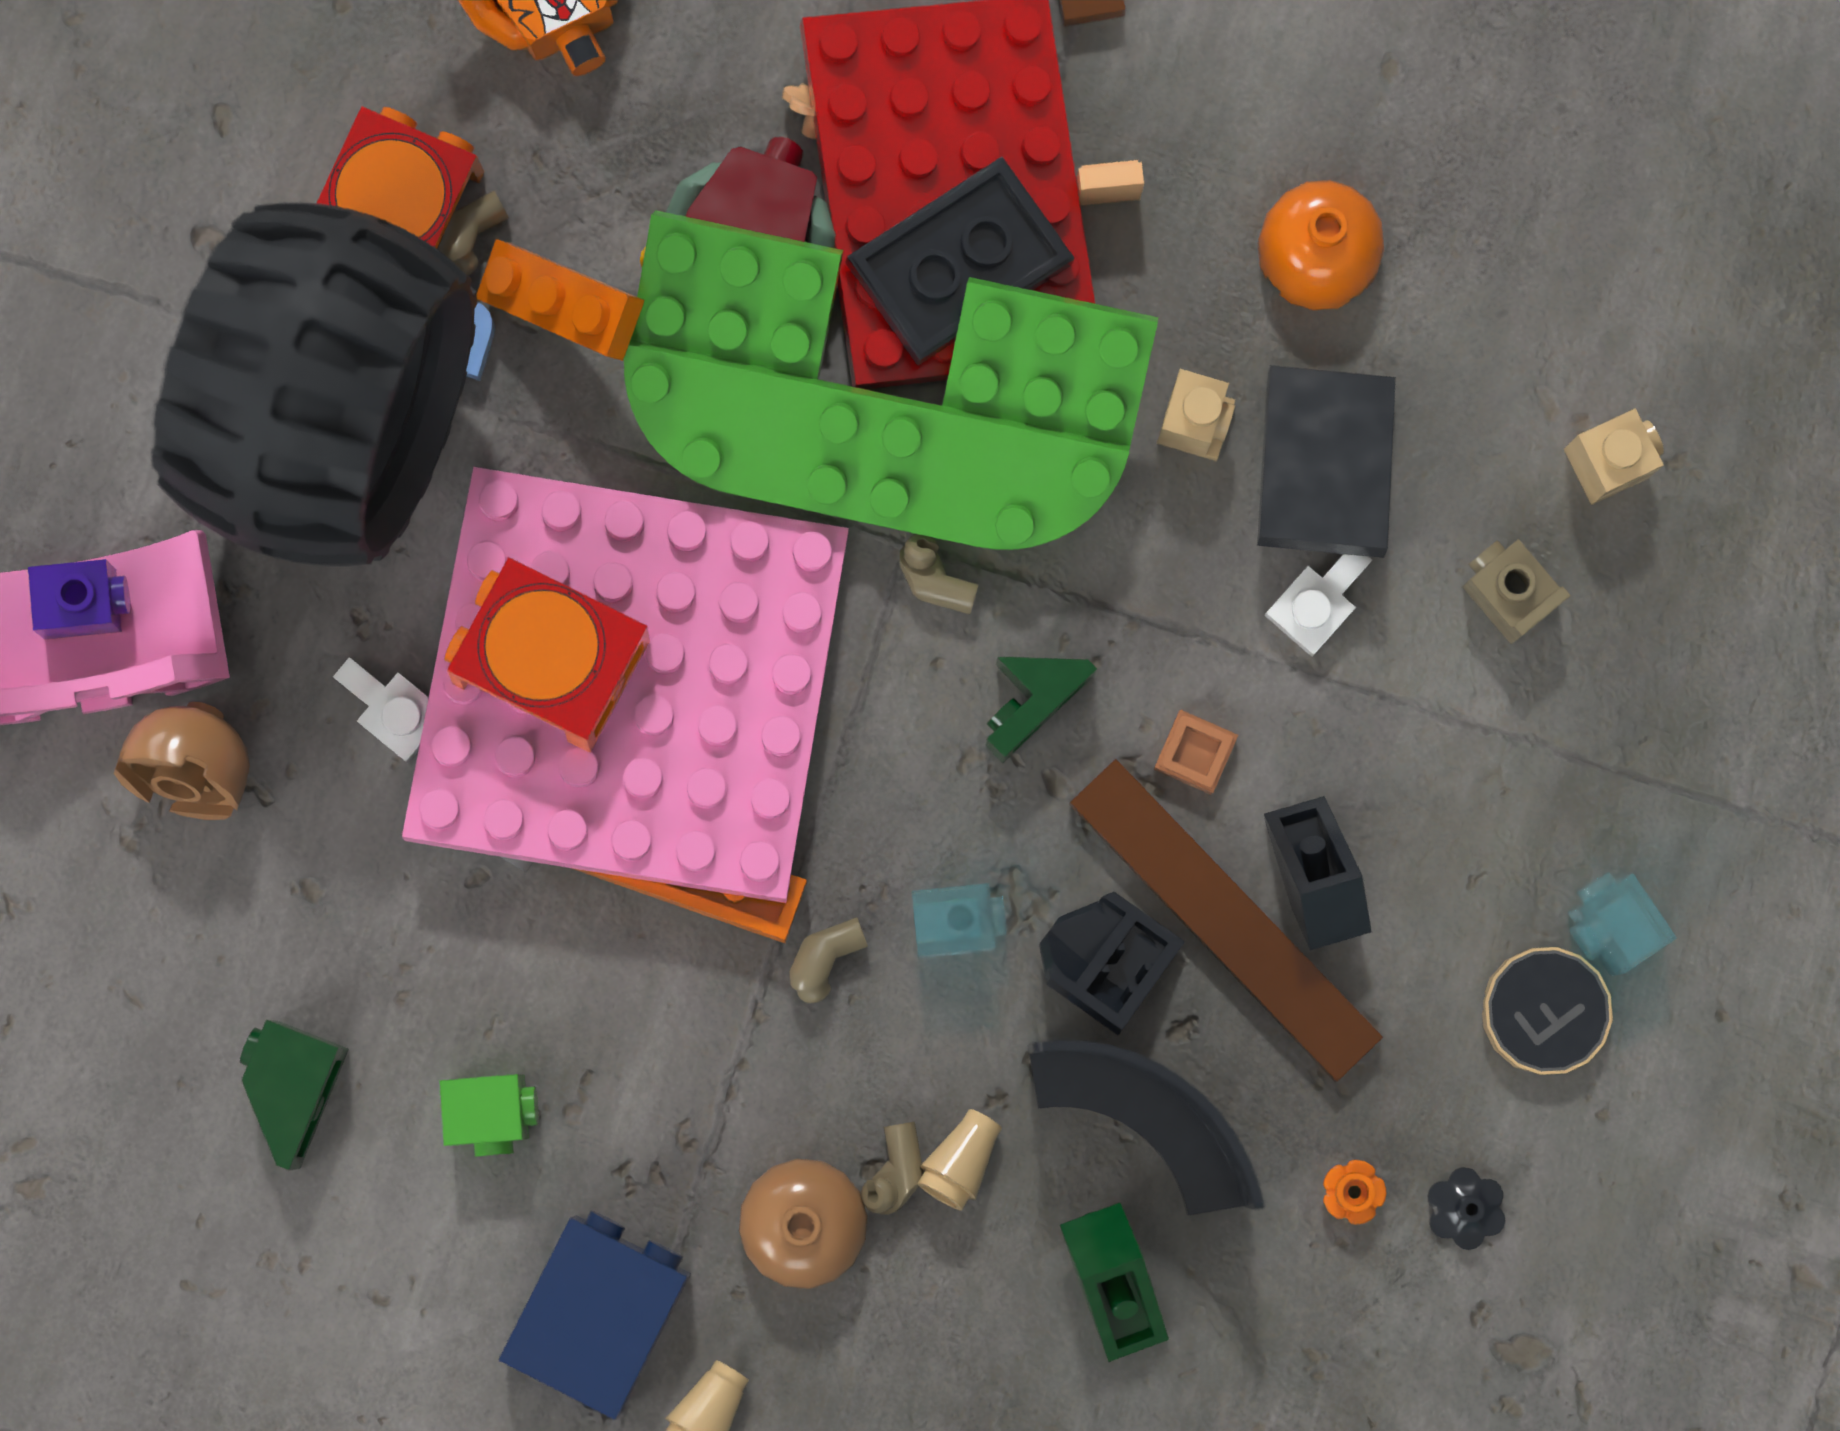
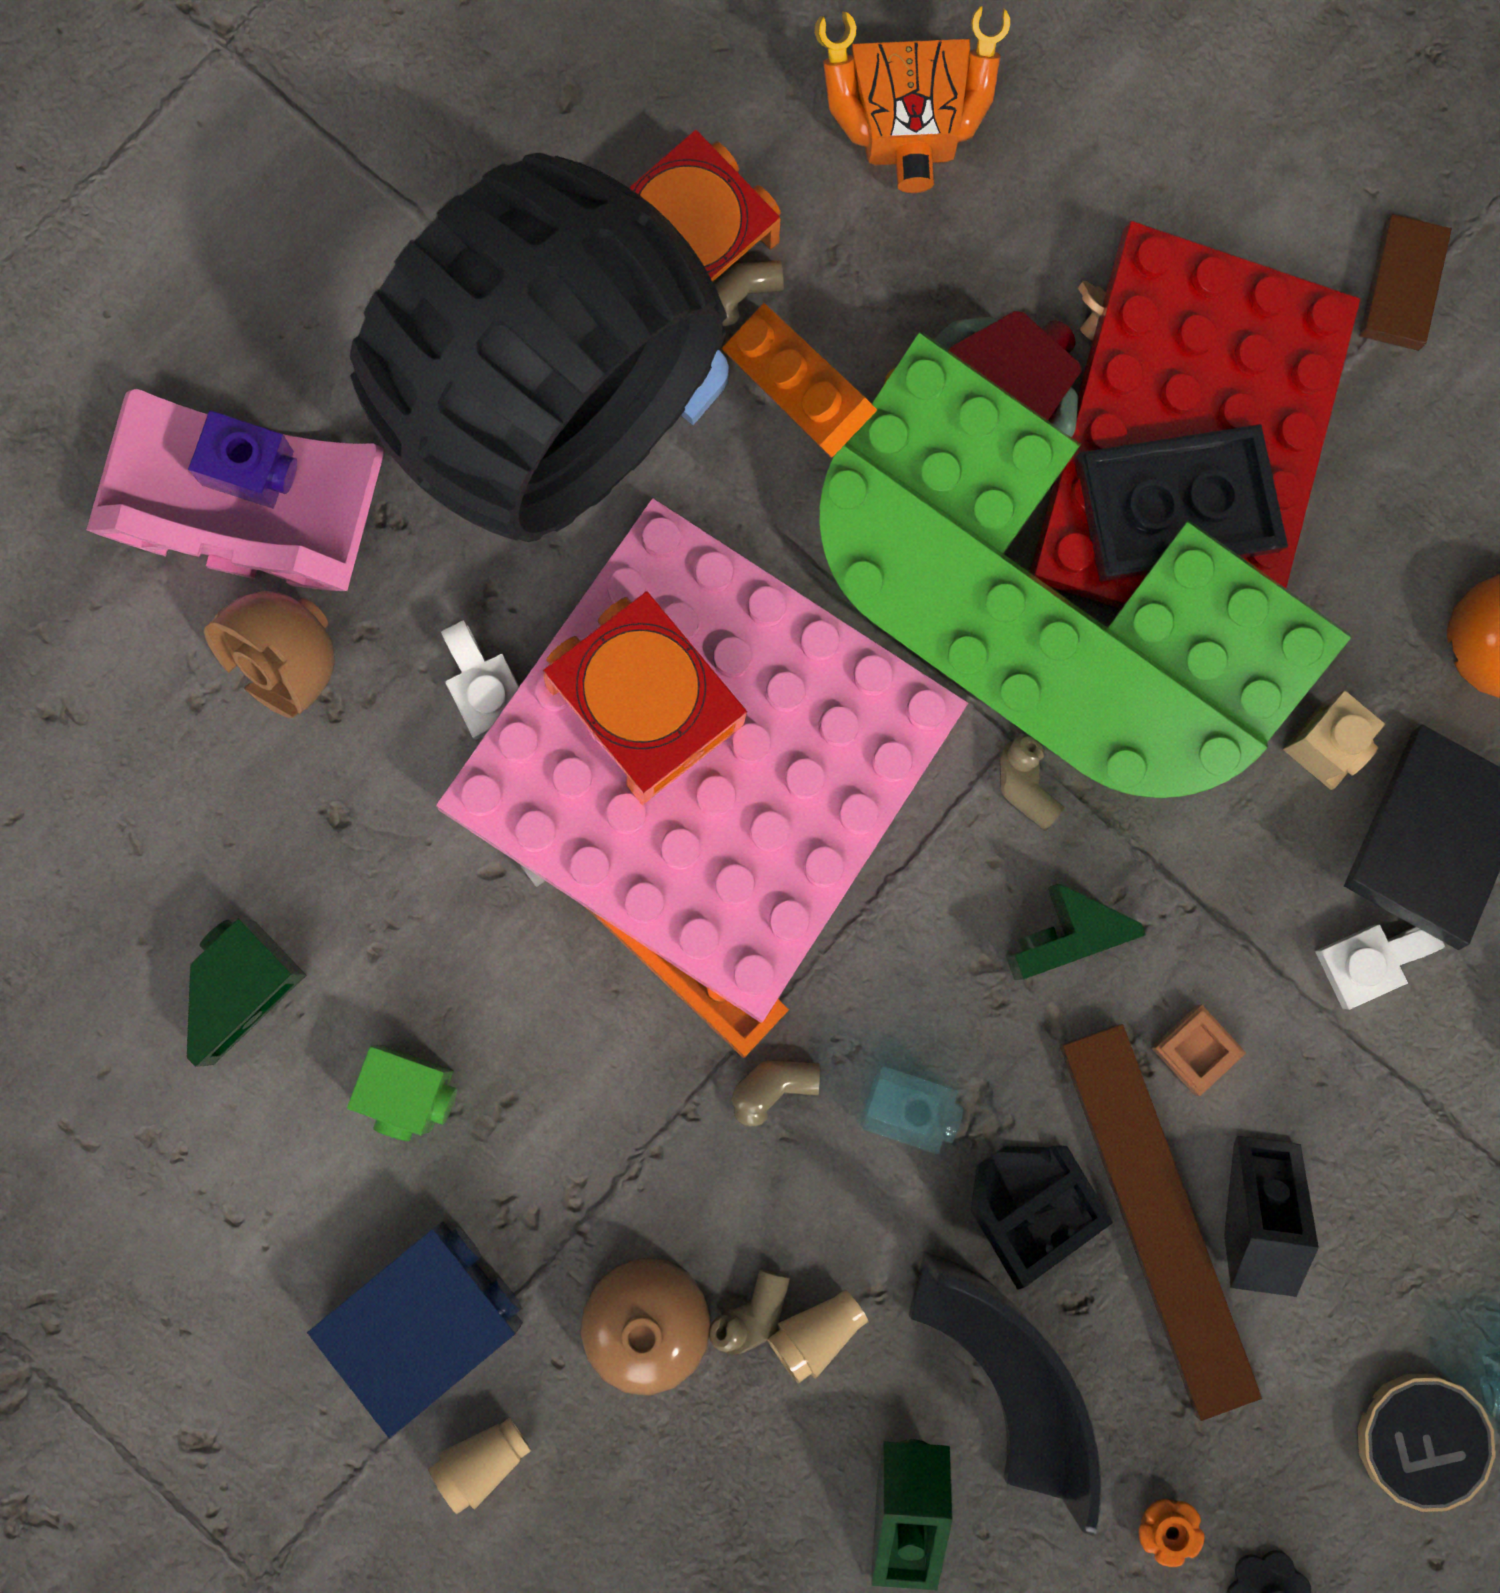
camera: 25 degrees right, 0 degrees up
(1110, 182) = (1347, 493): light nougat tile -> none

